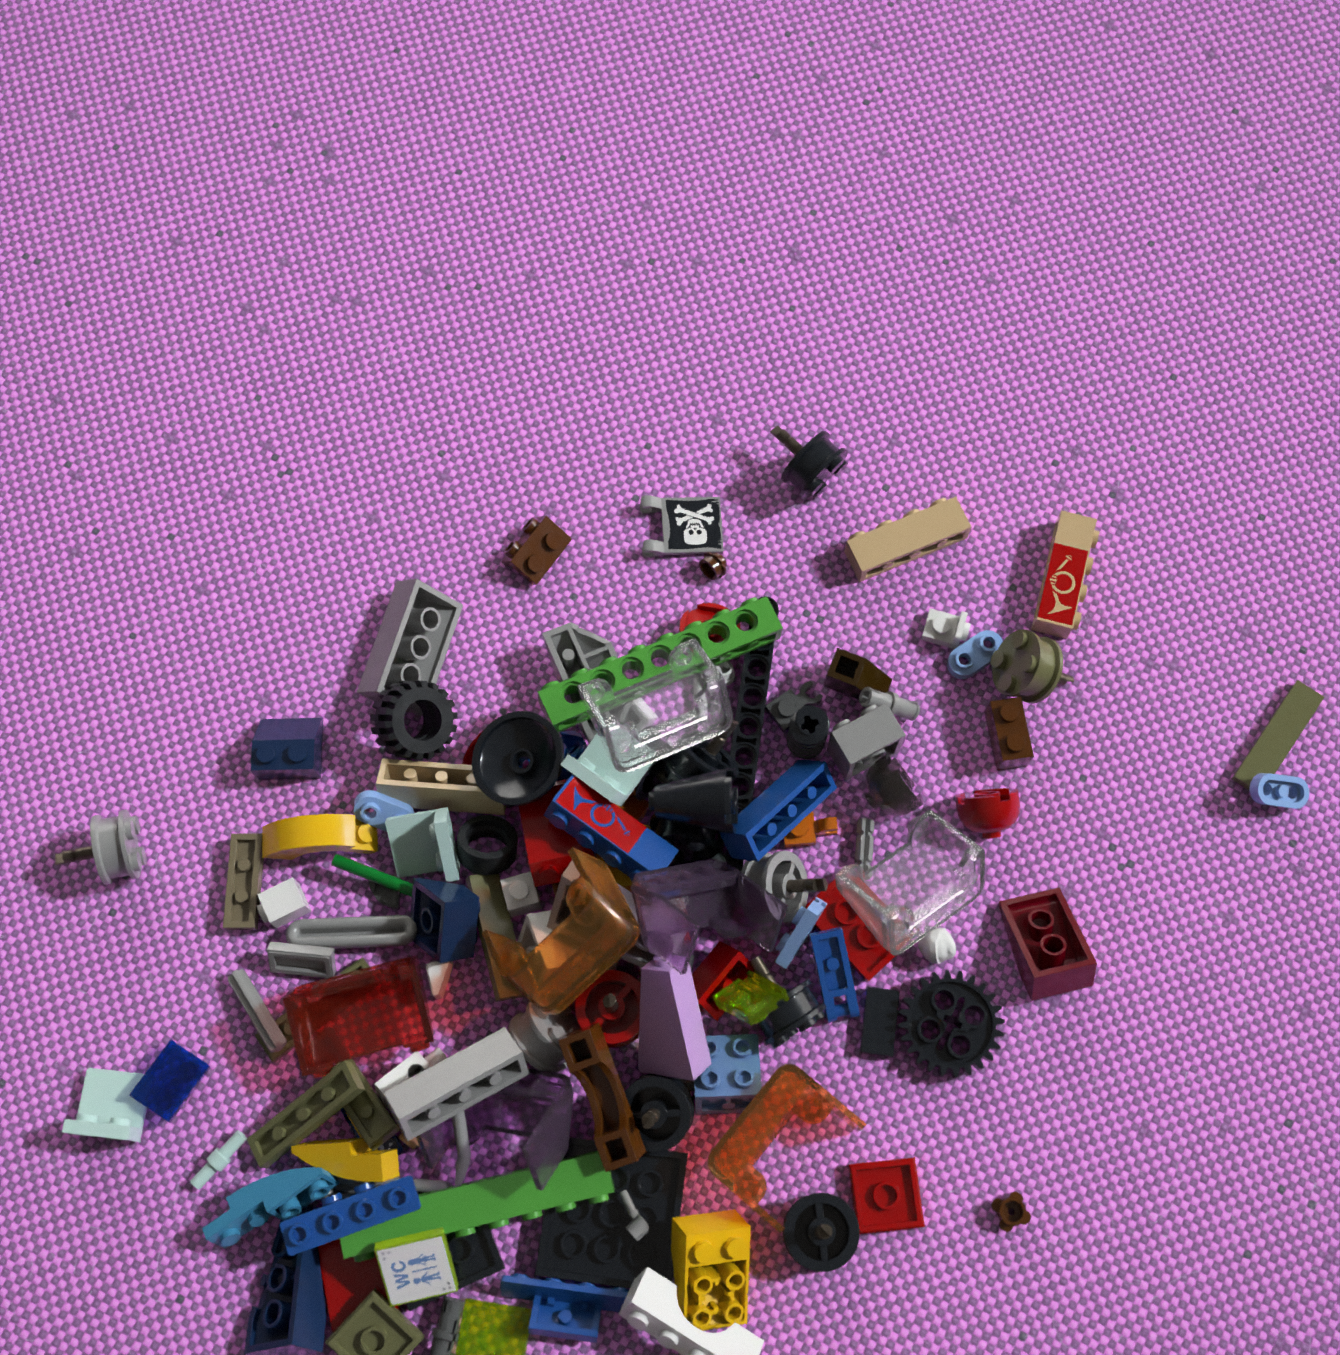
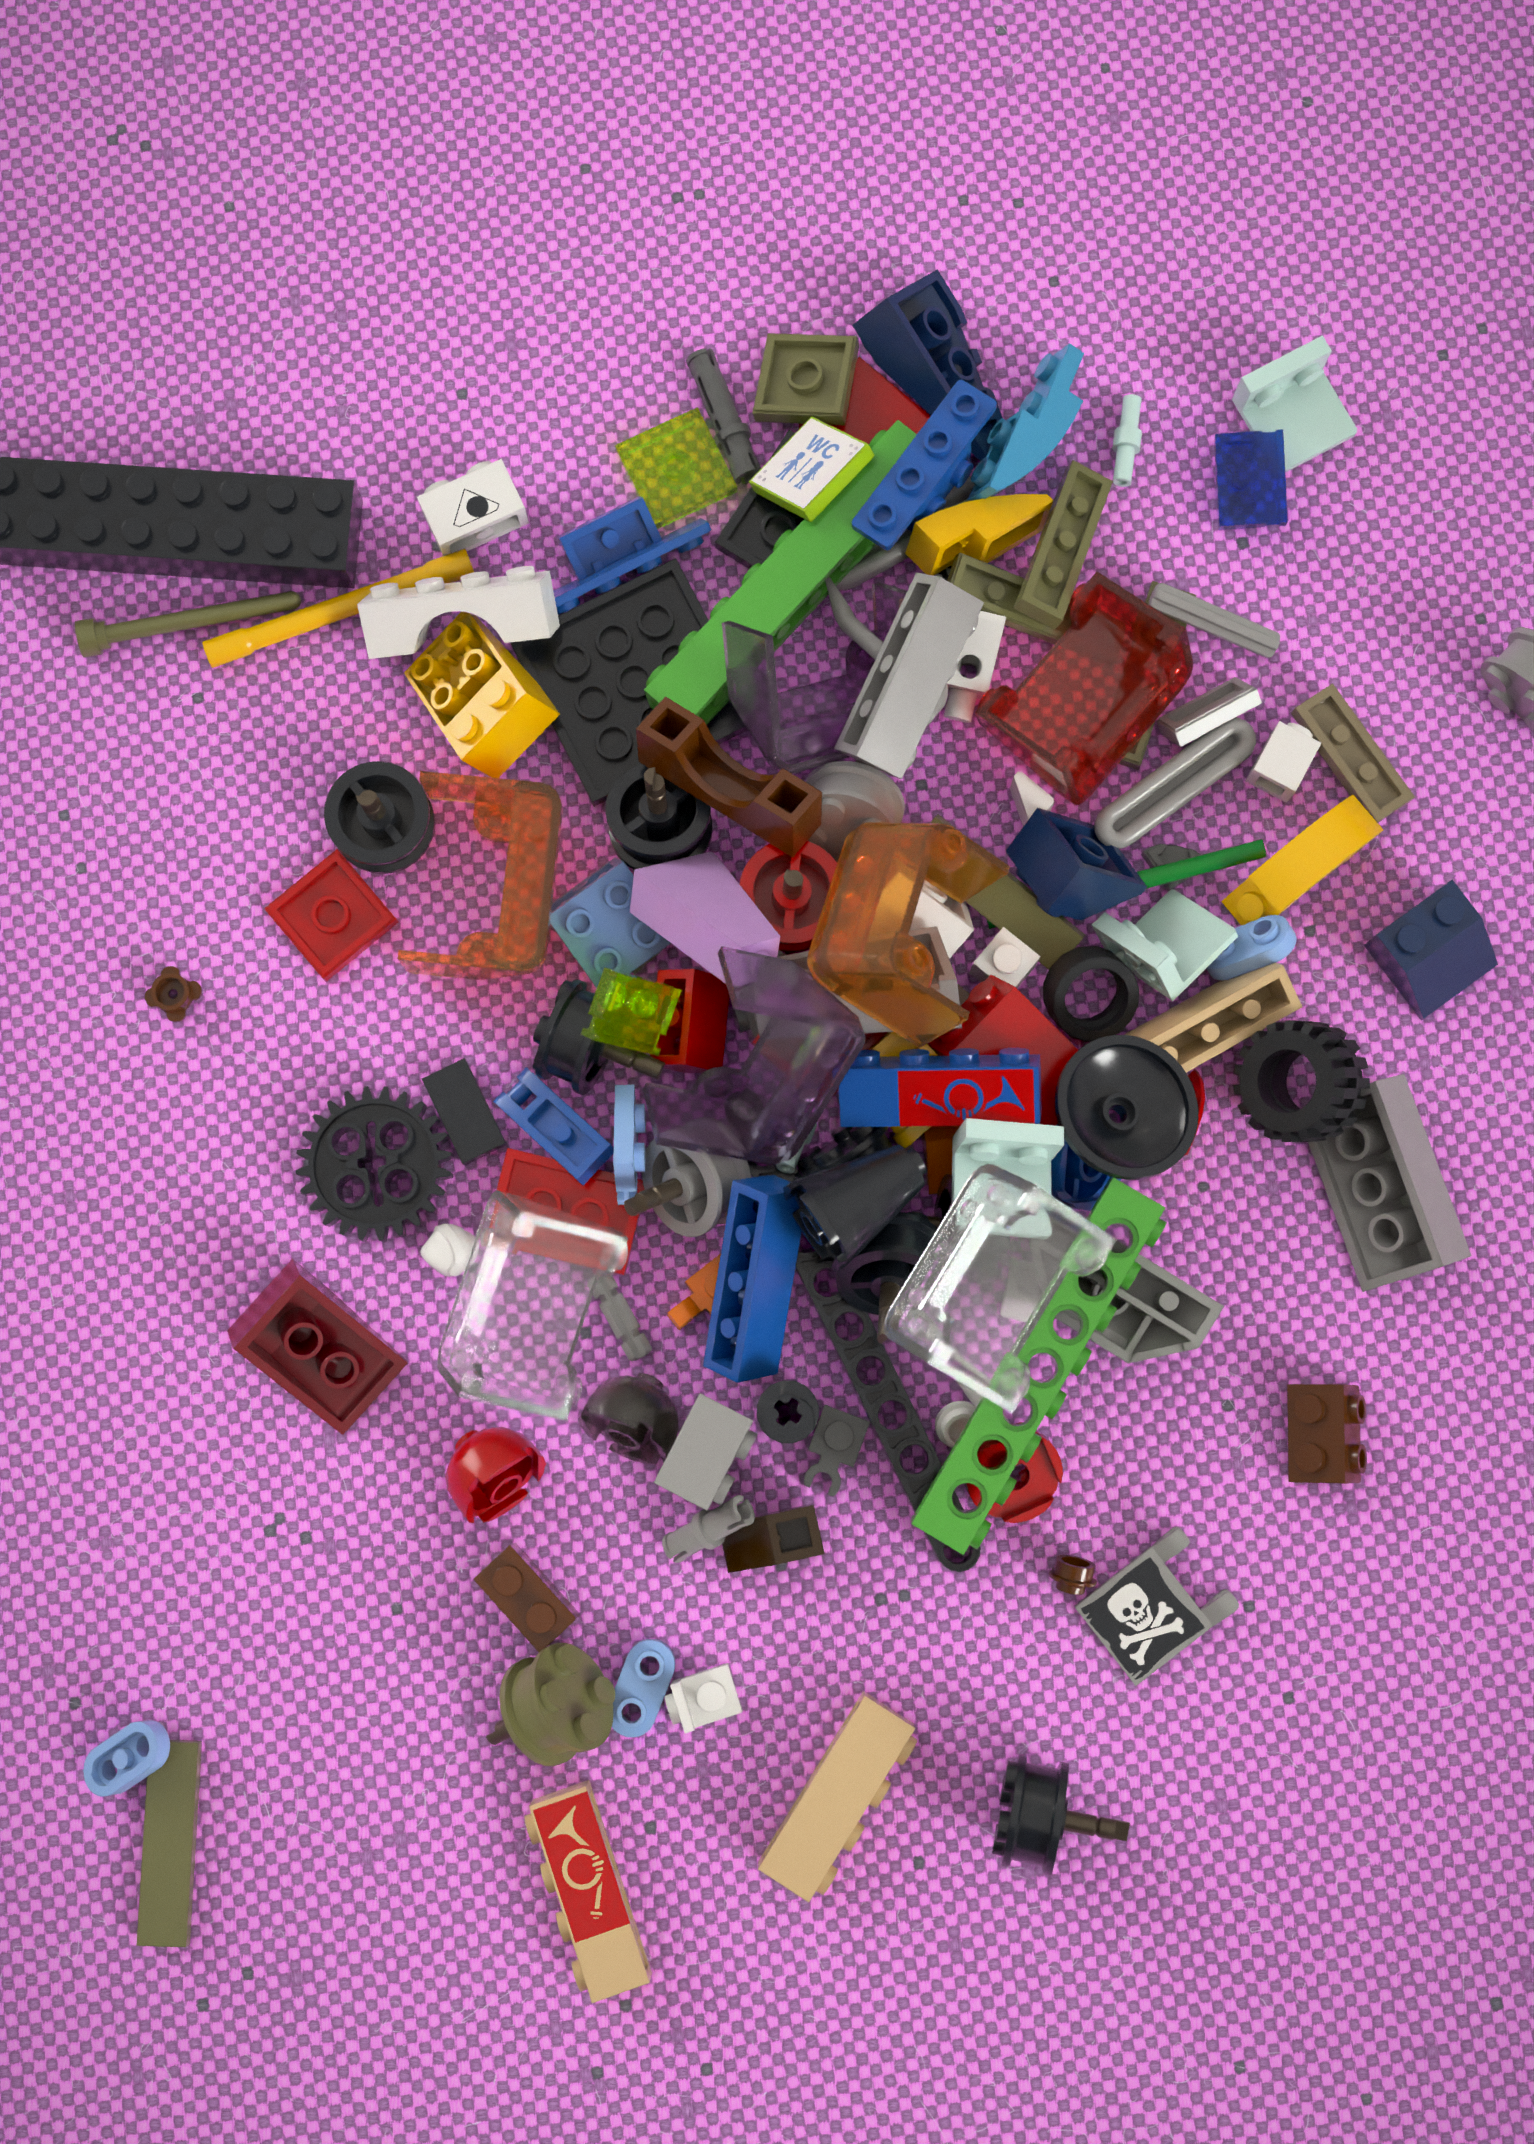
camera: 145 degrees right, 10 degrees up
(638, 1226) = (593, 685): light grey hand -> none

